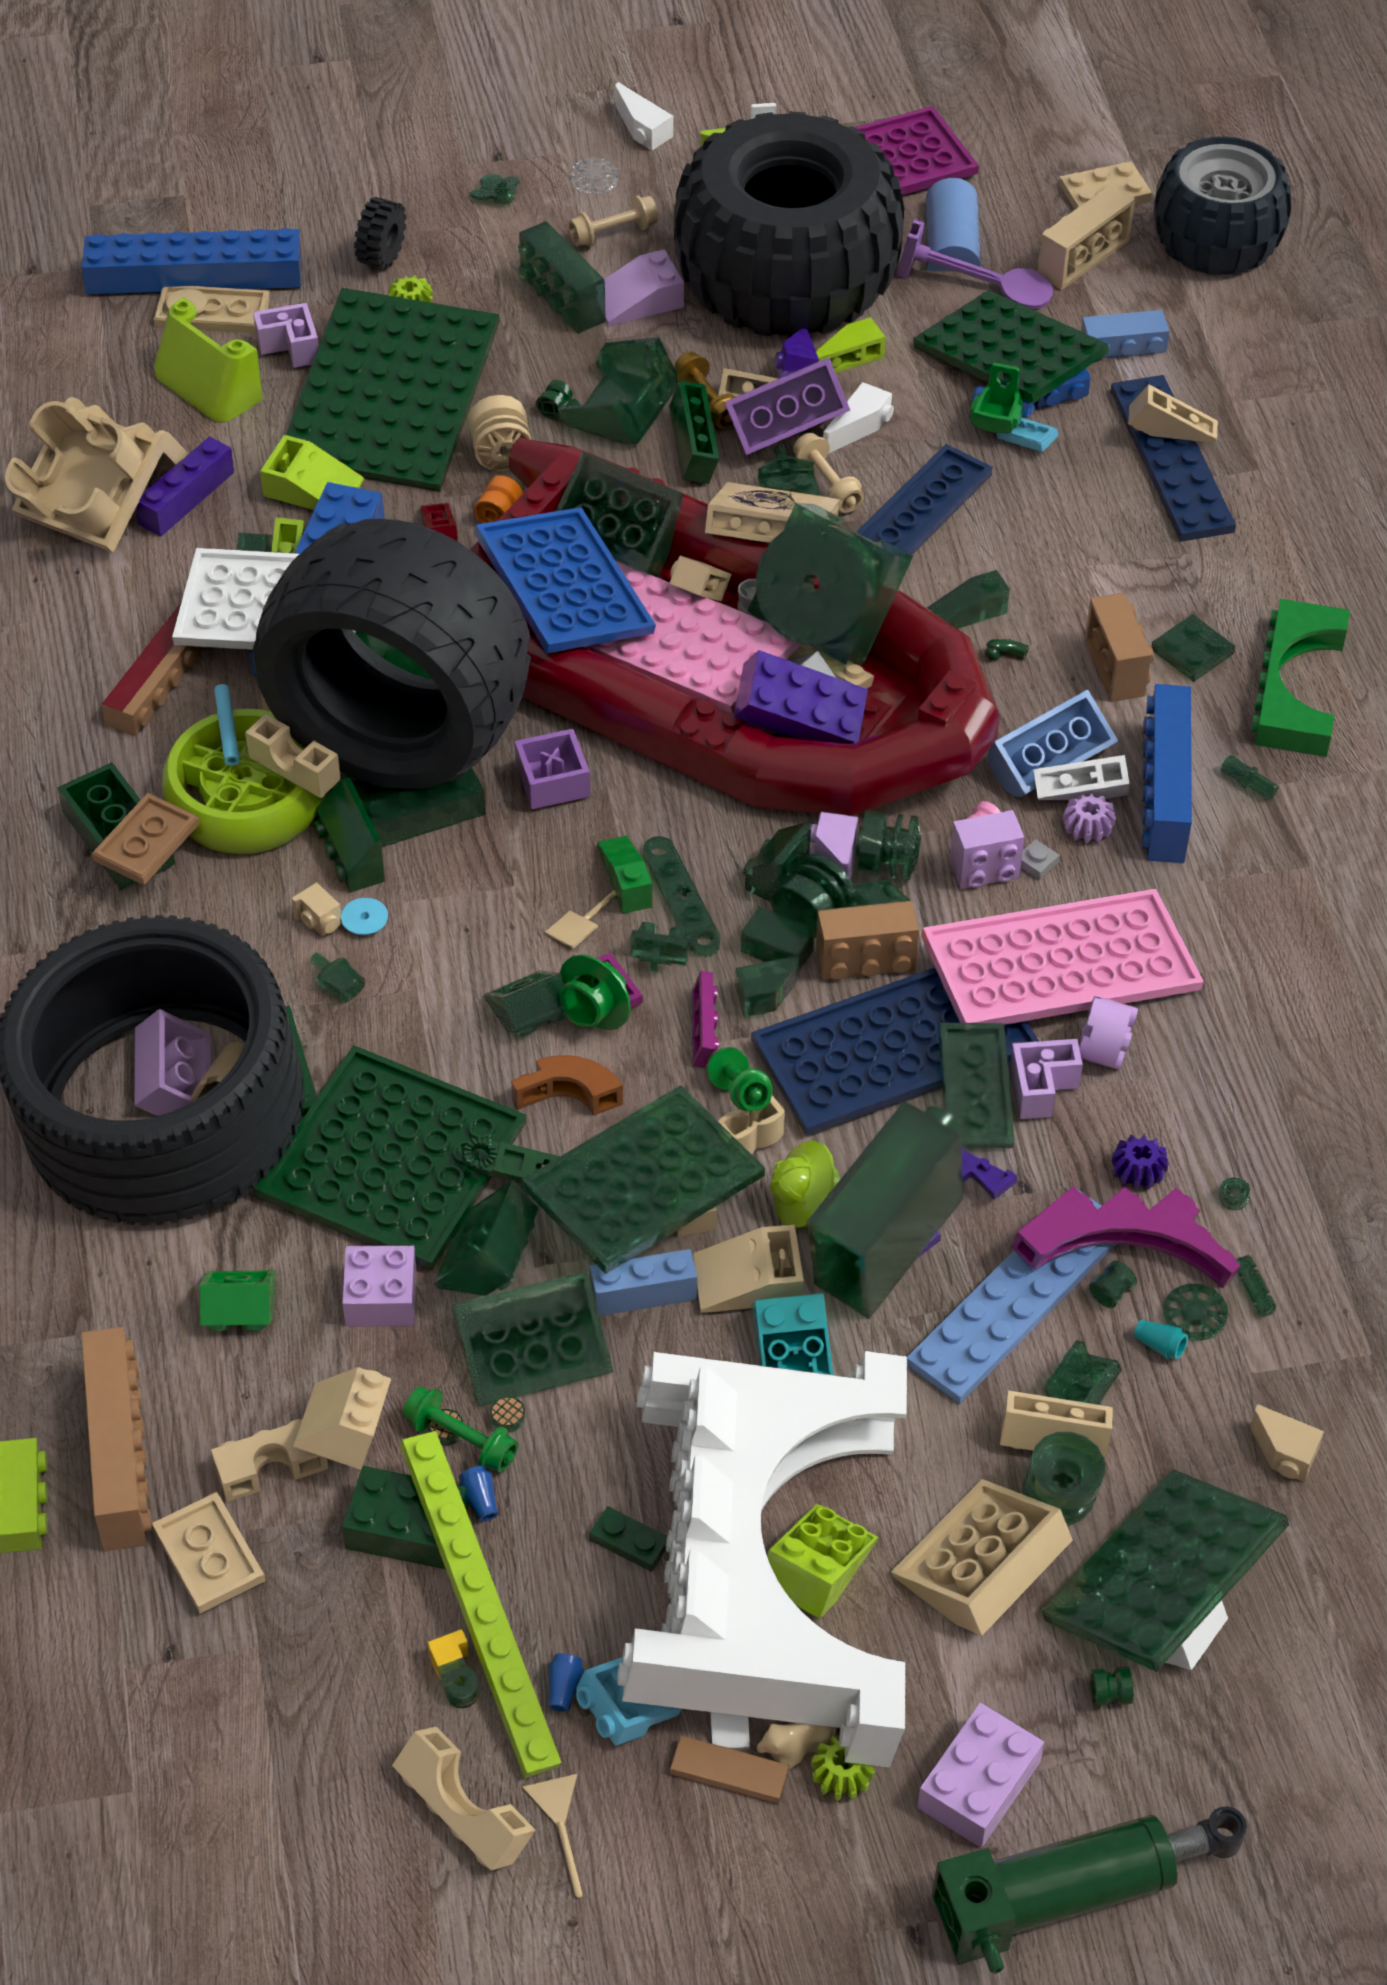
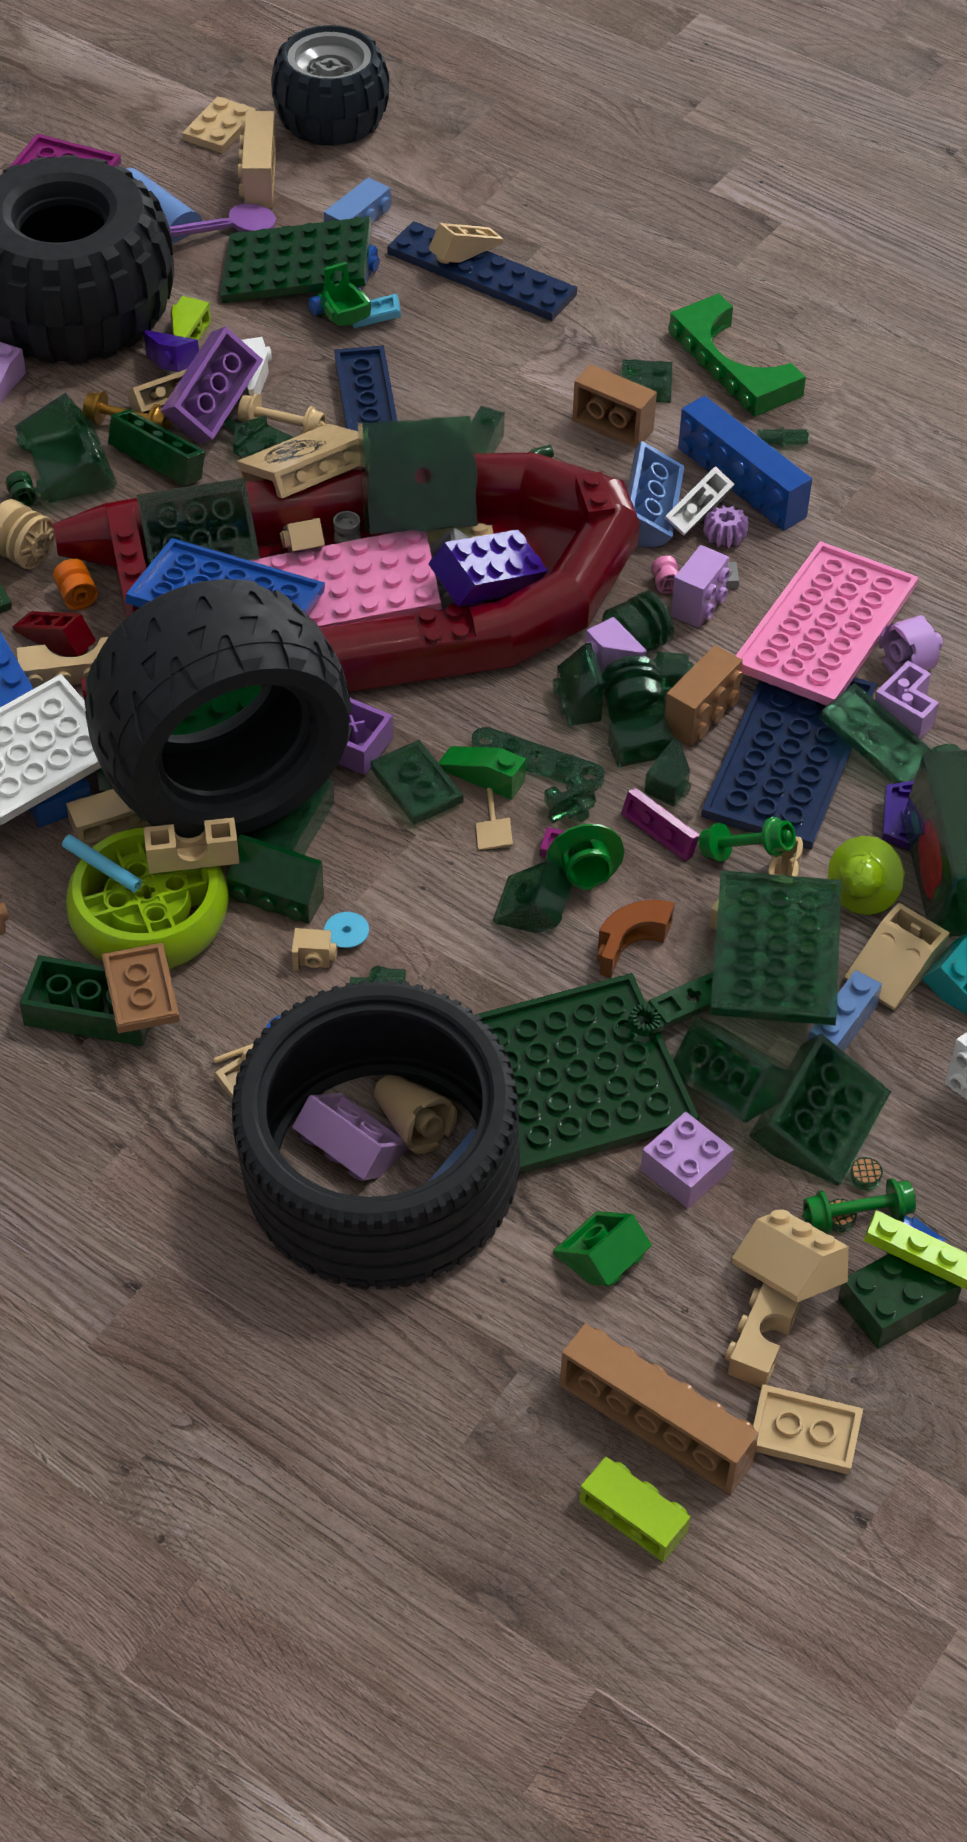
camera: 45 degrees left, 0 degrees up
(560, 843) = (416, 782): none -> clear green plate

